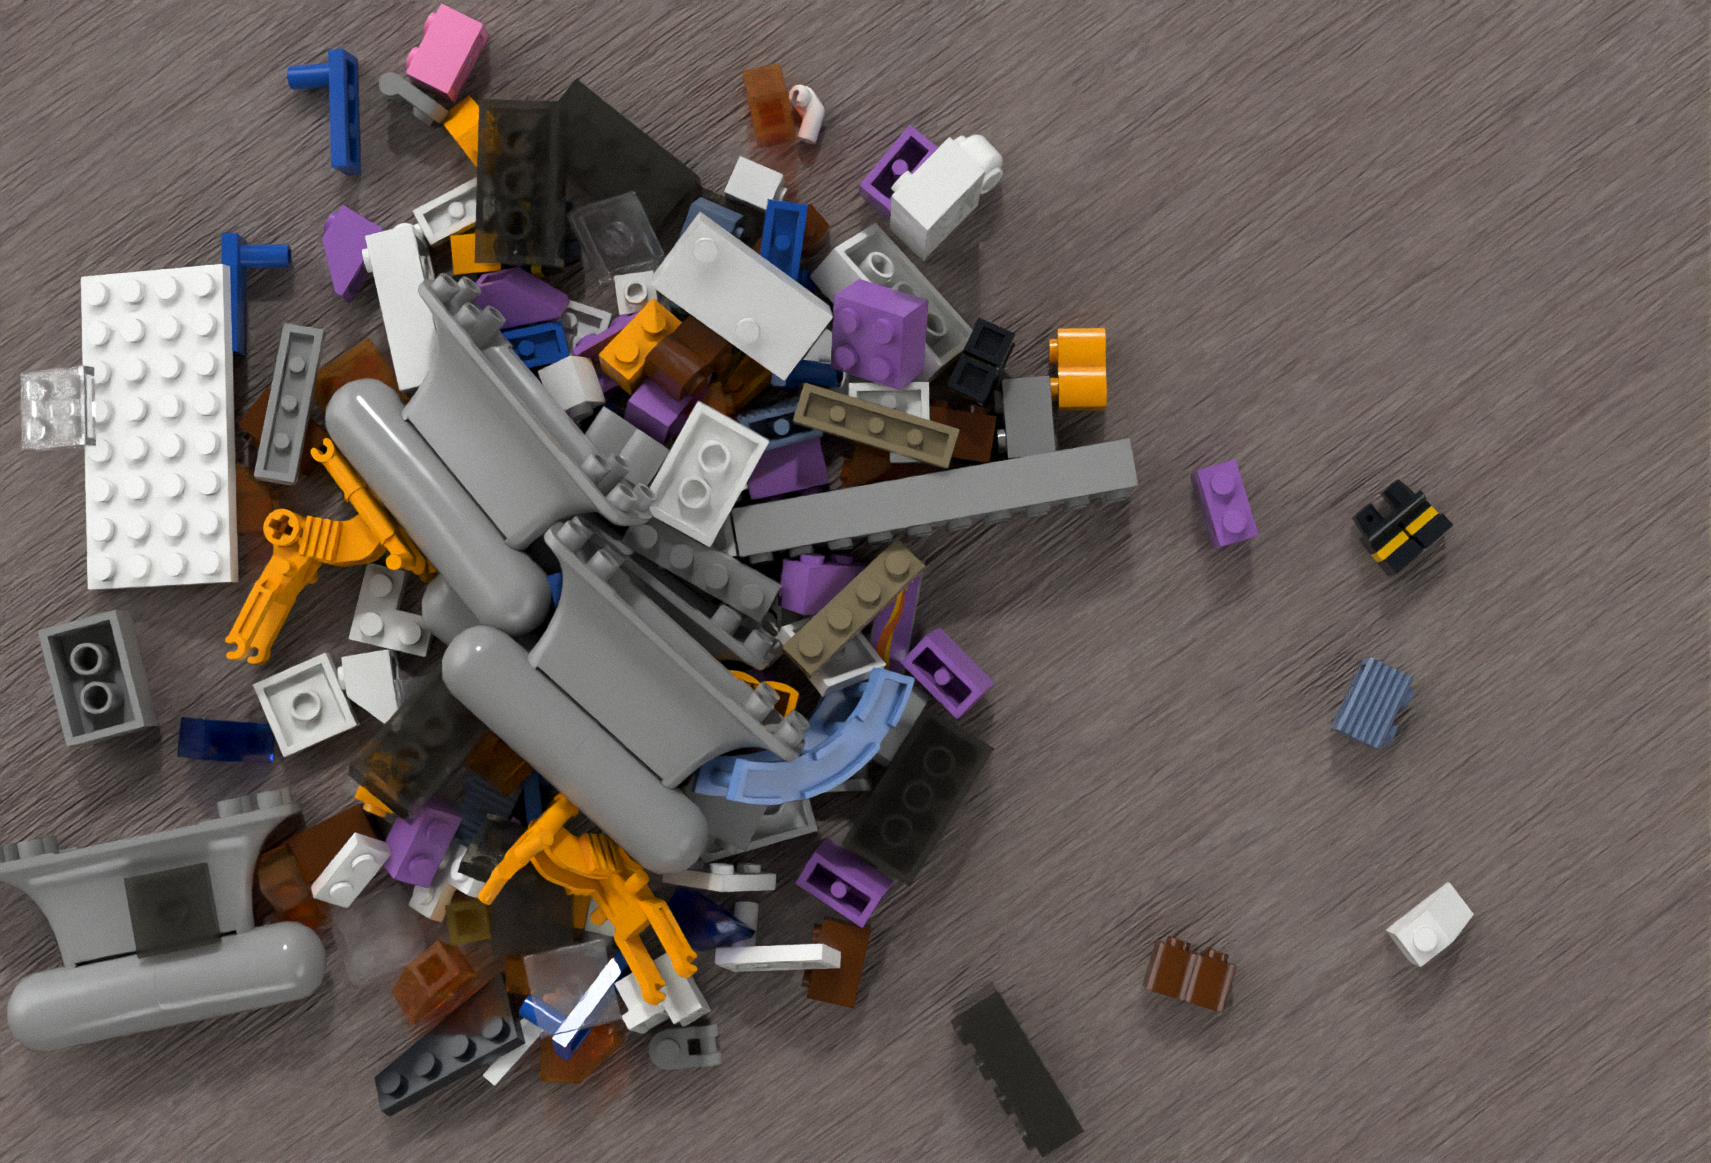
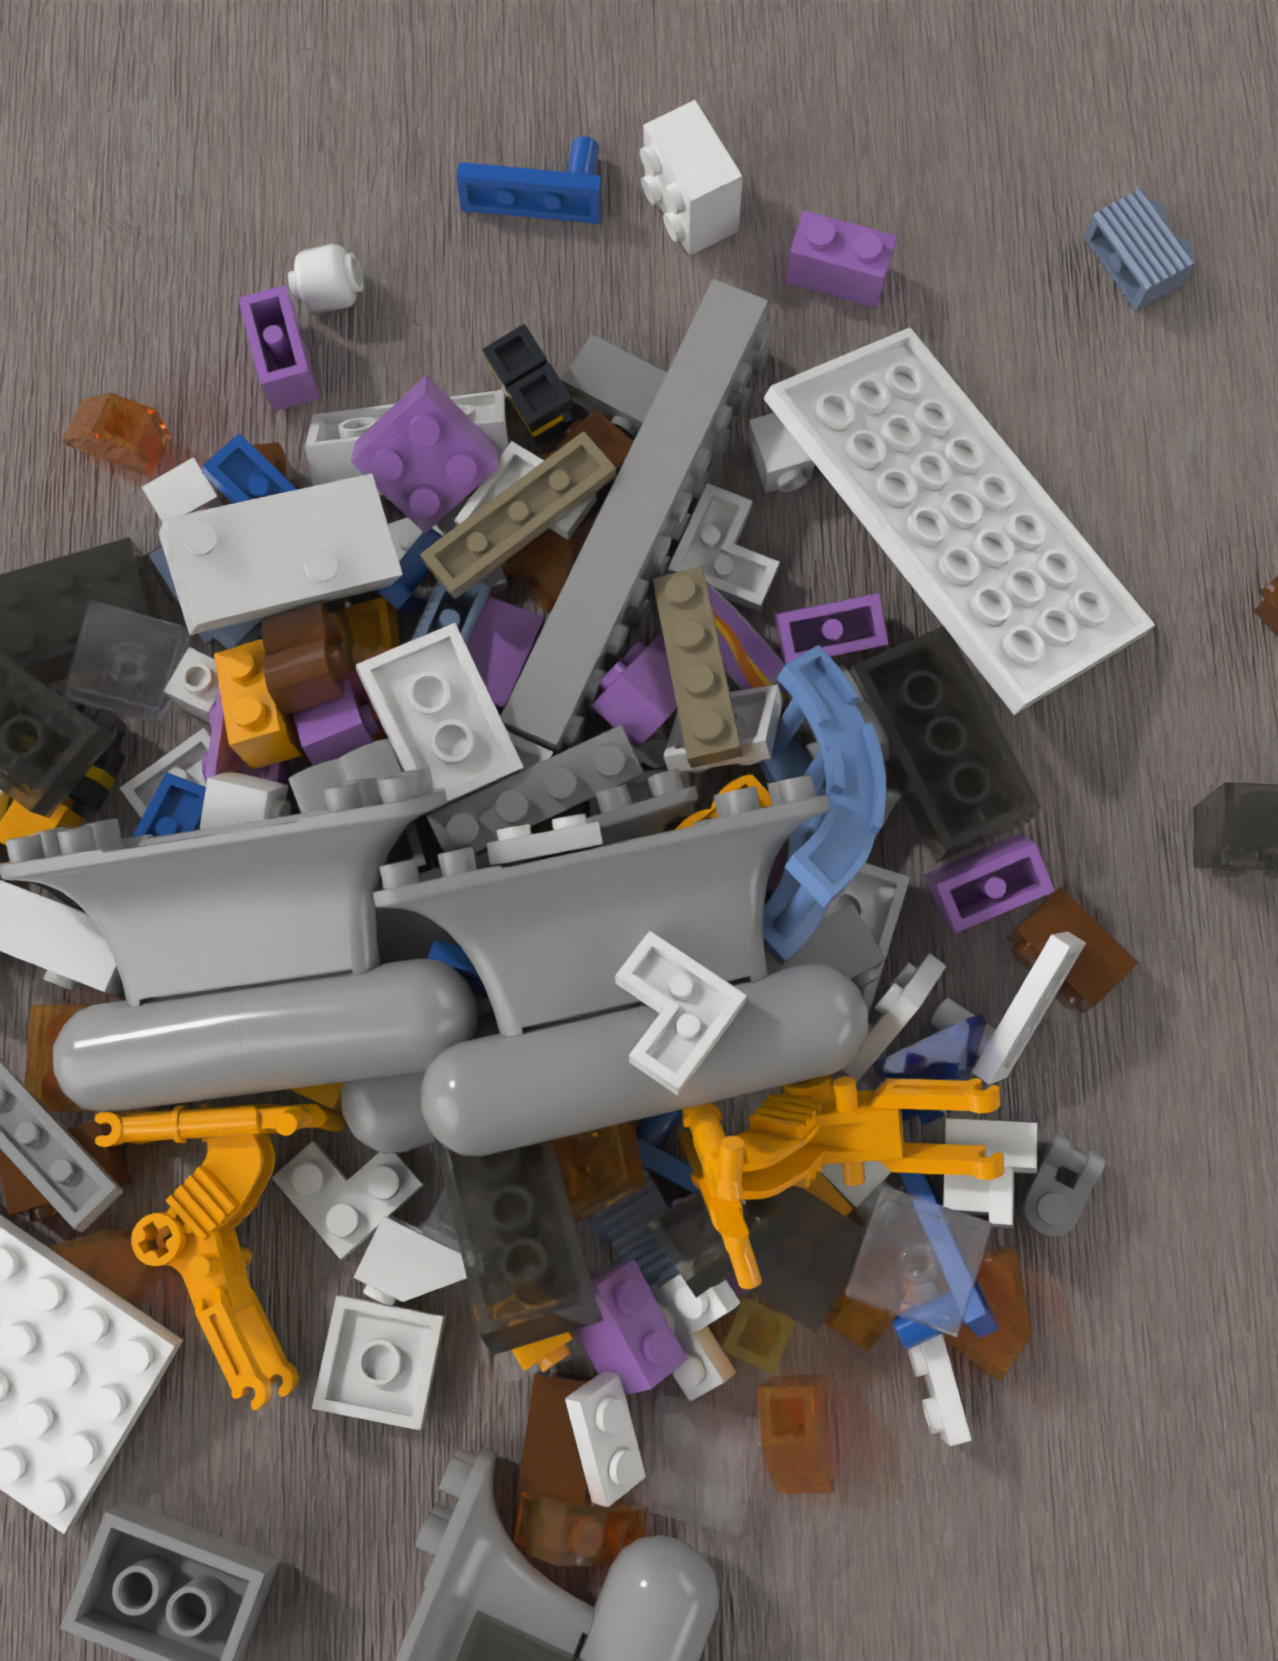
camera: 55 degrees left, 10 degrees down
(225, 740) = (351, 1488): clear blue slope -> none
(460, 1044) = (894, 1450): black wing -> none
(520, 298) = (115, 795): medium lavender slope -> none
(611, 763) = (692, 1009): none -> white plate
(672, 609) = (520, 844): none -> white plate
(810, 110) = (159, 399): white arm -> none
(935, 198) = (328, 304): white brick -> none
(950, 558) = (711, 543): none -> white plate
(1055, 557) = (778, 455): none -> white brick
(1080, 369) = (605, 305): light orange brick -> none
(1082, 705) = (960, 517): none -> white plate
(1150, 288) = (536, 192): none -> blue piece
(1211, 364) = (691, 178): none -> white brick
(1403, 531) = (983, 117): black hips -> none

